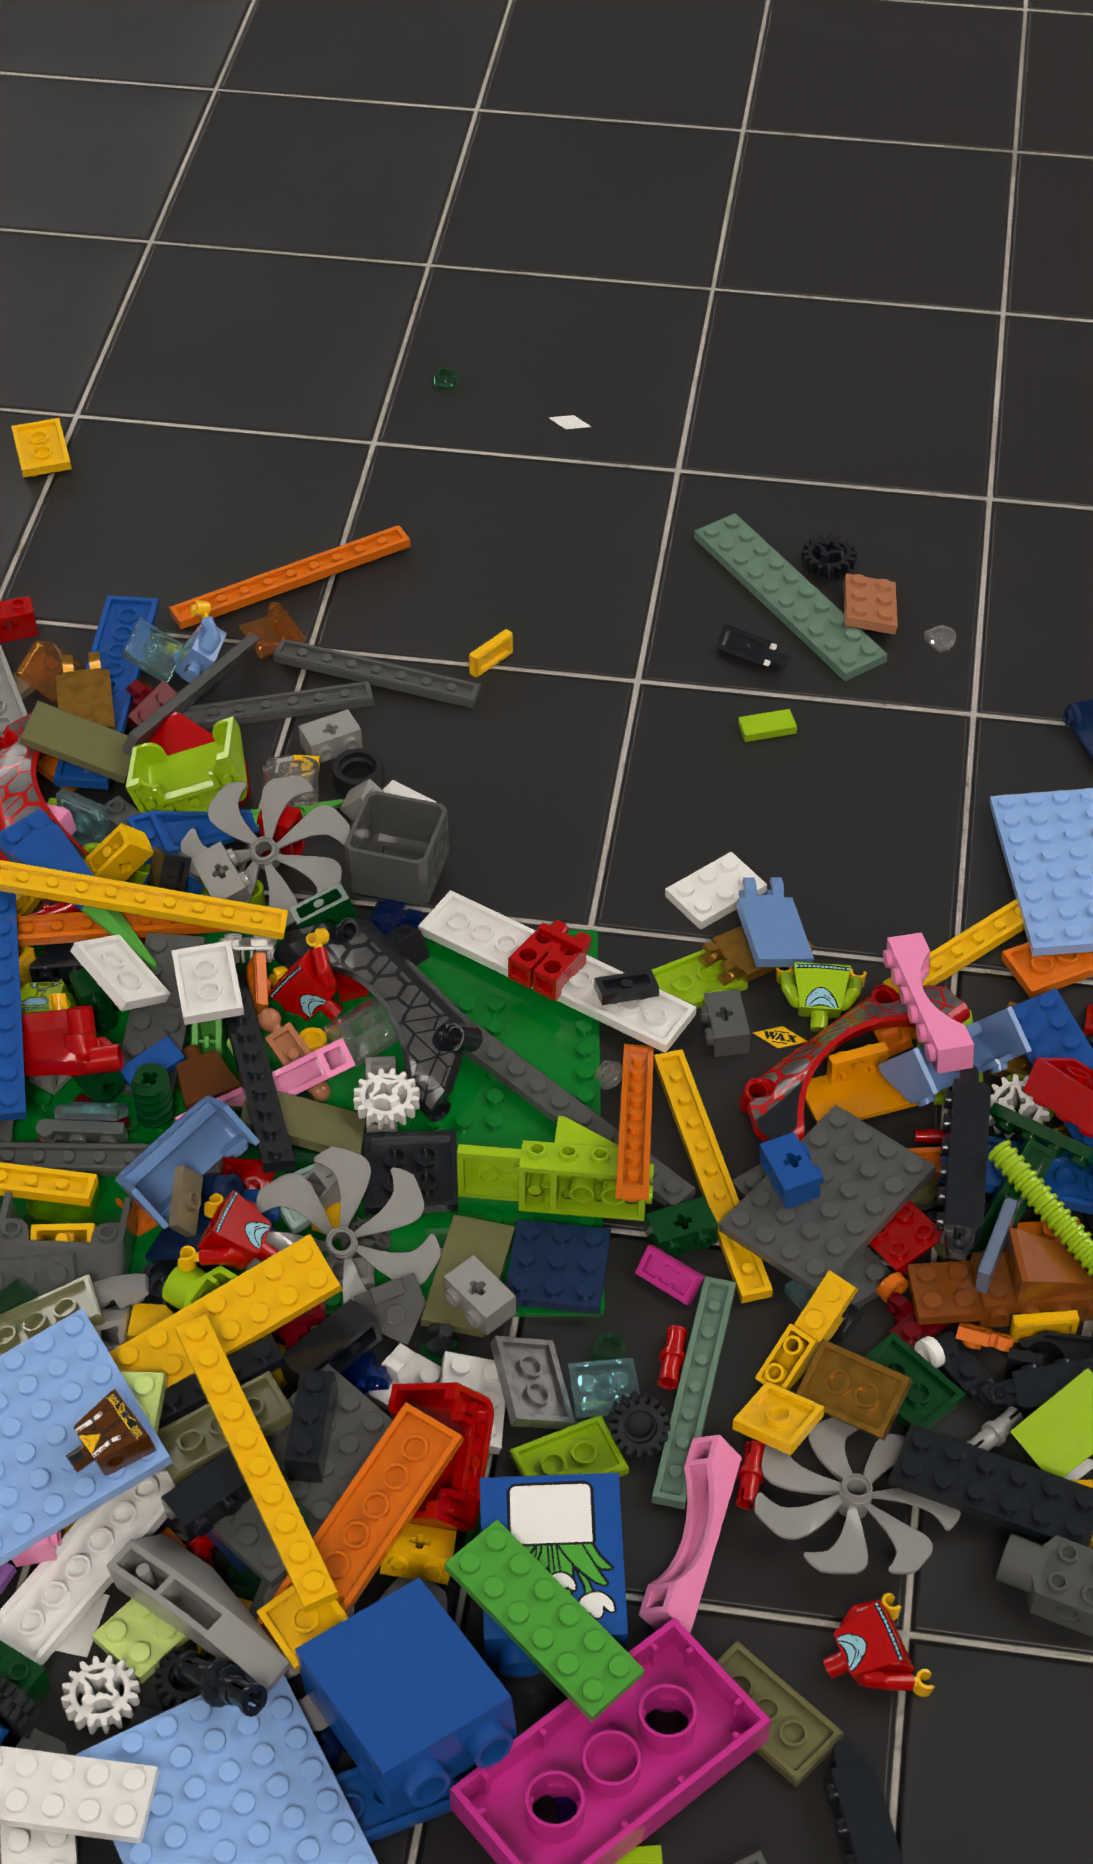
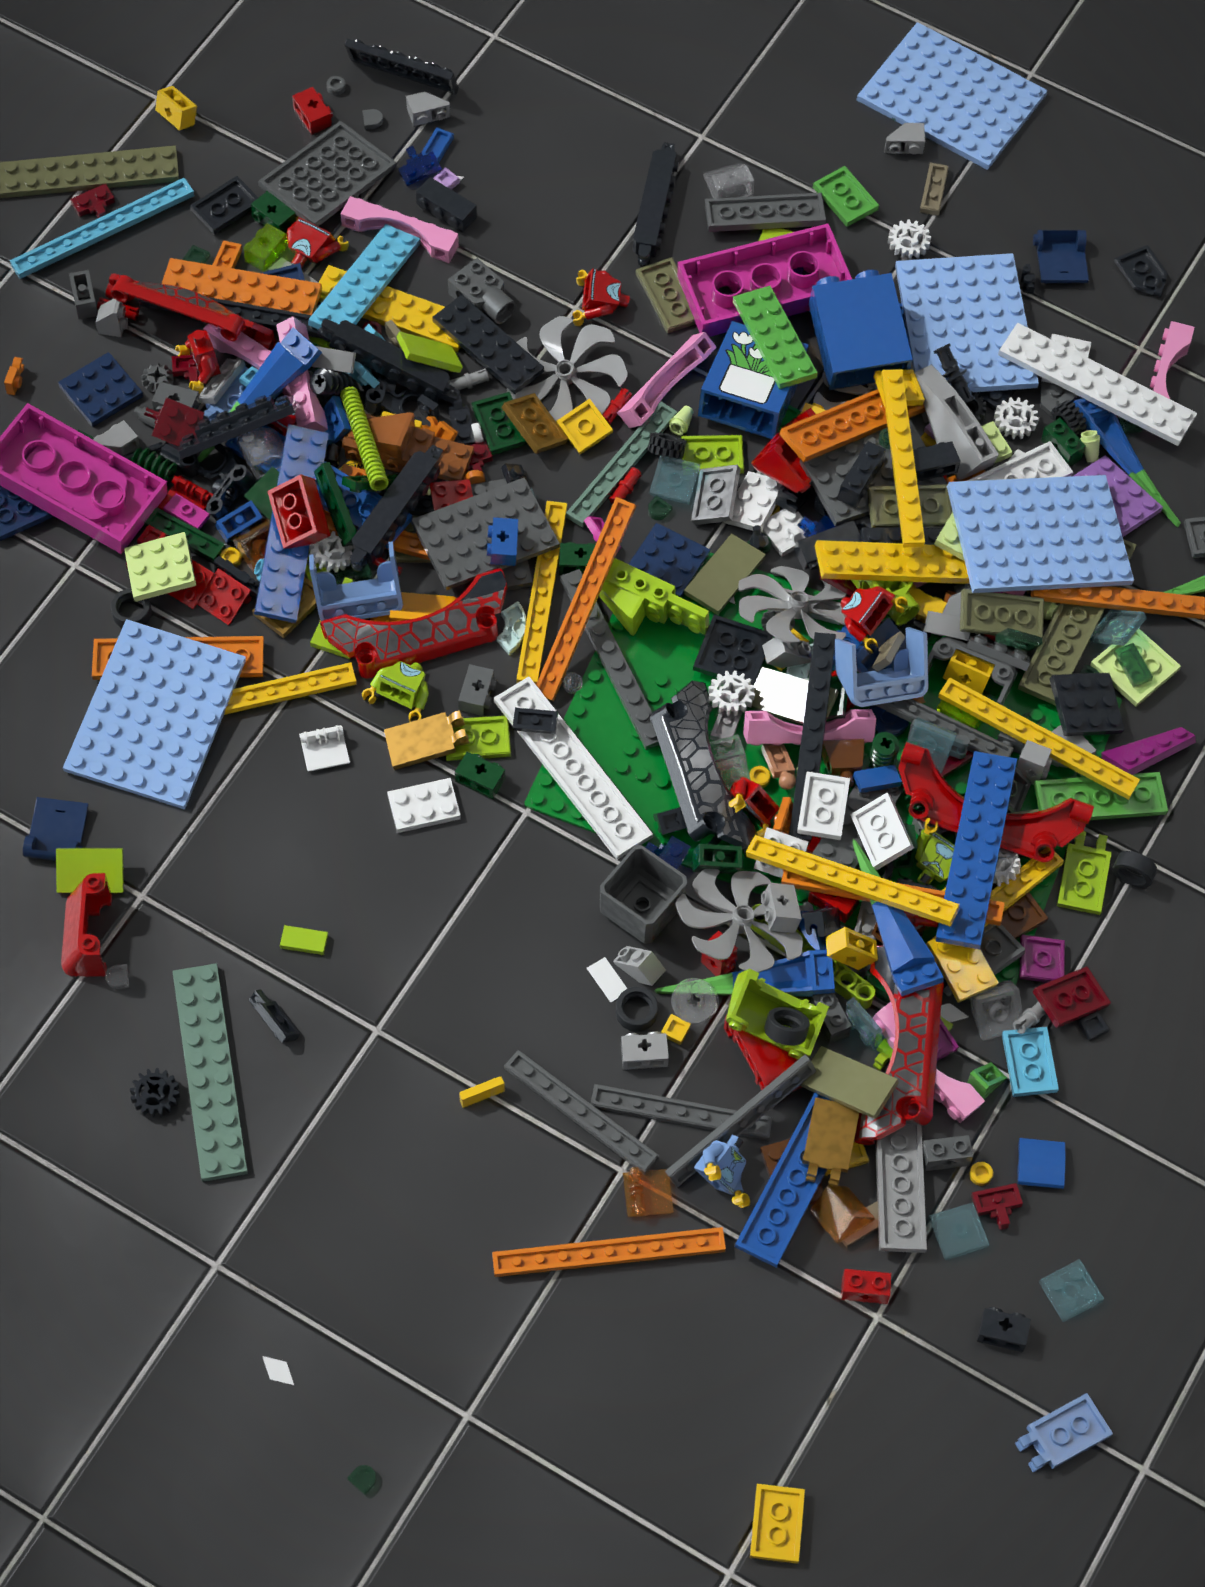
camera: 160 degrees left, 15 degrees up
(110, 1437) = (980, 492): reddish brown torso -> none
(147, 700) = (779, 1127): dark red hinge -> none
(152, 650) = (759, 1176): clear light blue plate -> none
(168, 737) = (785, 1035): none -> black tyre
(396, 1306) = (779, 567): dark grey plate -> none
(479, 1295) = (727, 544): light grey brick -> none
(549, 959) = (576, 758): red hips -> none
(639, 1487) = (680, 422): none -> yellowish green cone
(665, 933) = (480, 775): none -> dark green brick
(725, 1124) = (514, 628): none -> light aqua tile
(772, 925) = (407, 743): medium blue tile -> none
(780, 1037) = (443, 677): yellow sticker -> none
(800, 1341) = (544, 464): yellow slope -> none
(870, 603) = (154, 1025): nougat plate -> none
(873, 907) = (324, 748): none -> white hinge
(944, 1039) = (341, 655): bright pink arch -> none
(989, 627) = (82, 950): none -> red windscreen
(996, 1245) = (405, 452): sand blue tile -> none
(1043, 701) = (77, 863): none -> lime tile

